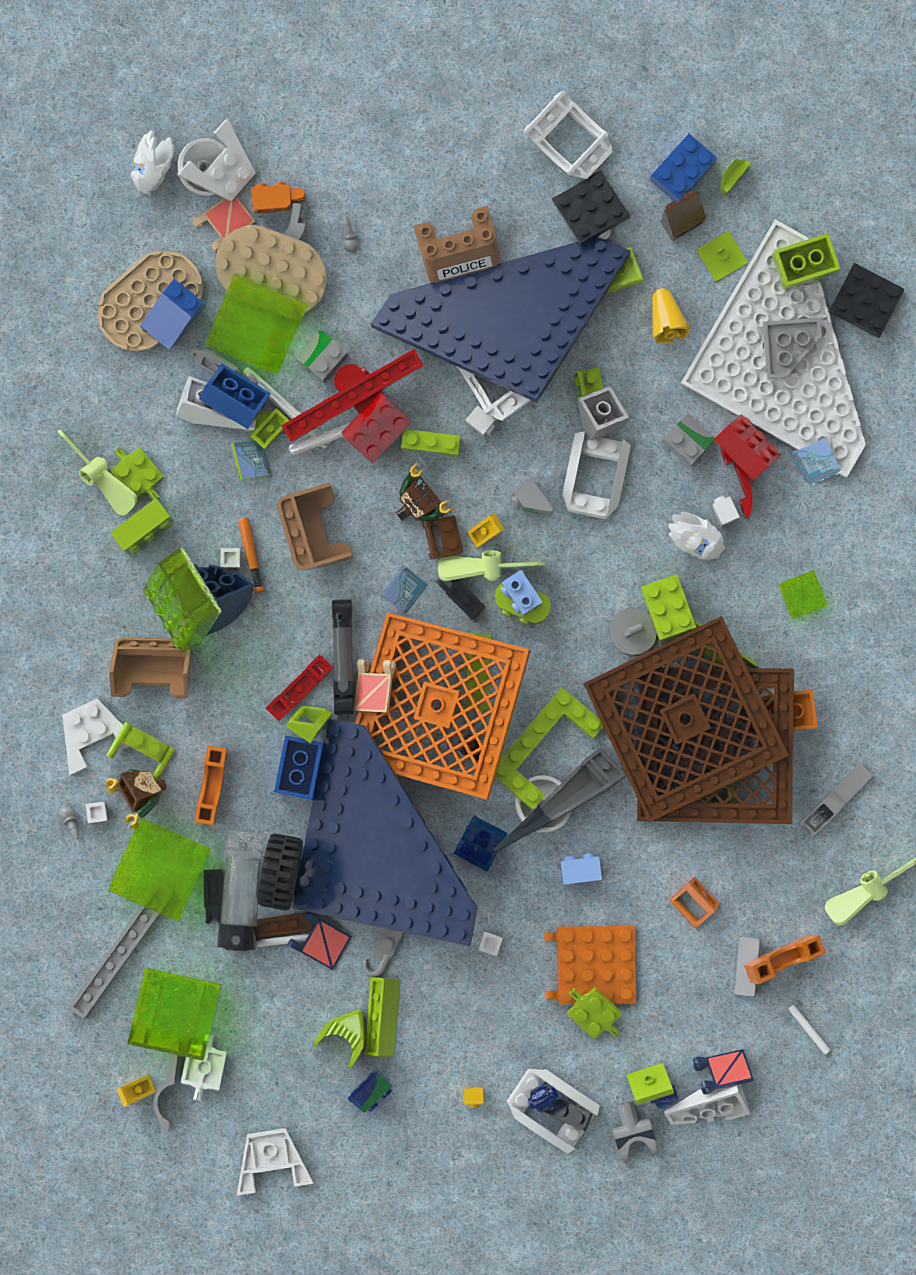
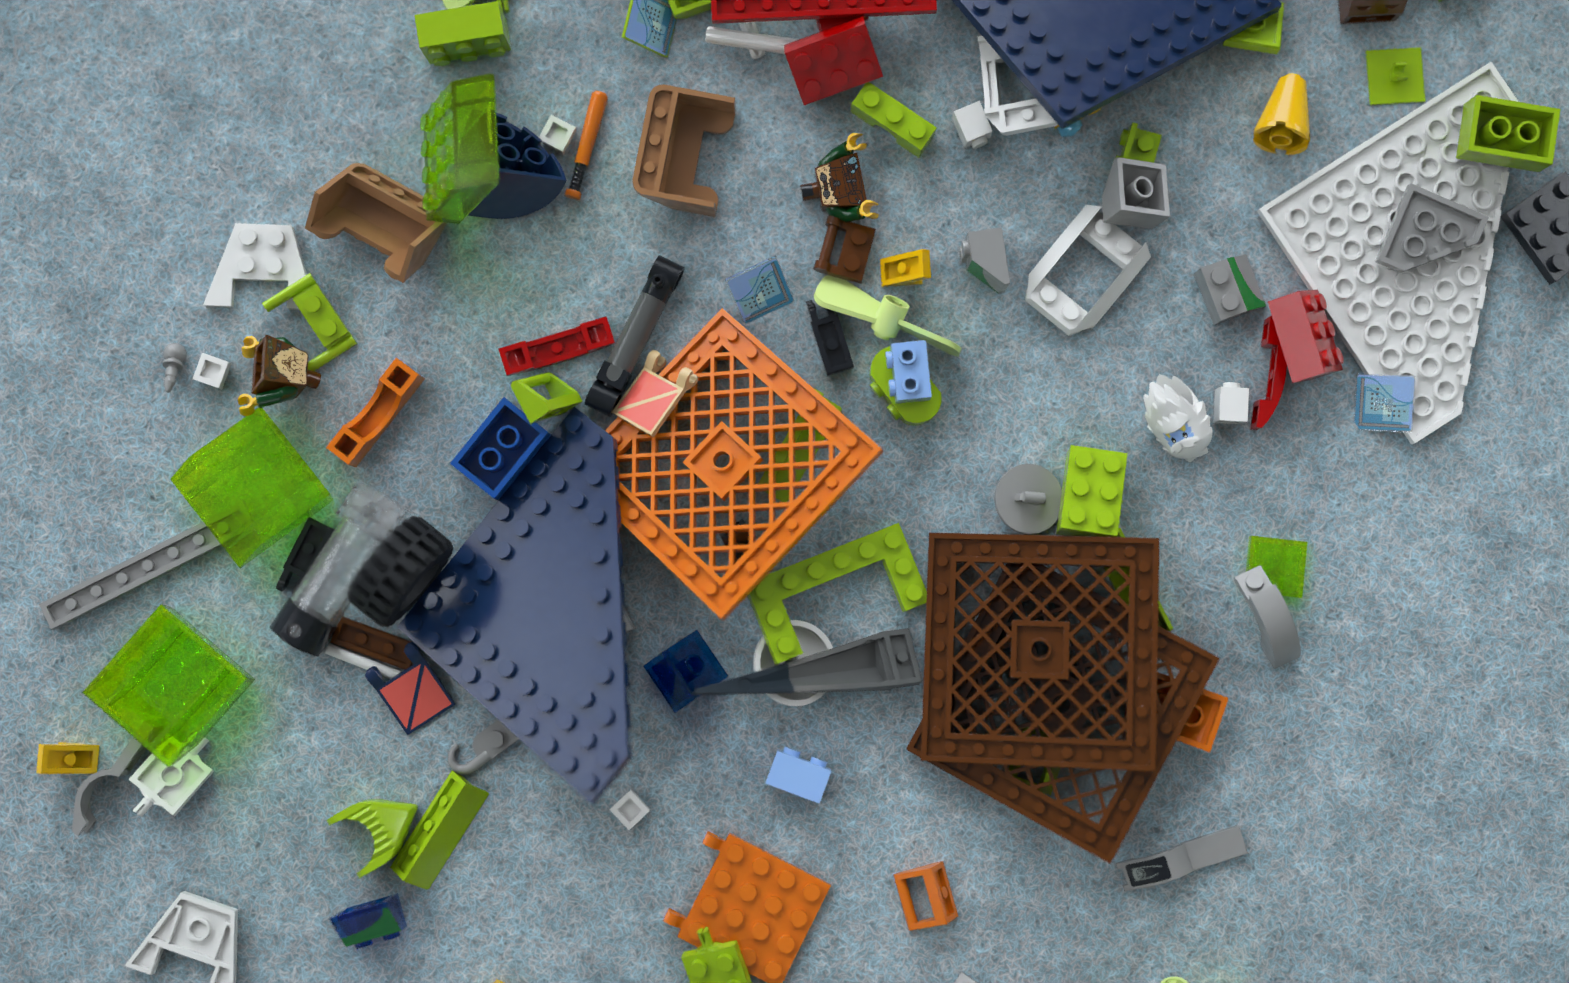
camera: 25 degrees right, 0 degrees up
(813, 627) = (1273, 617): none -> light grey arch

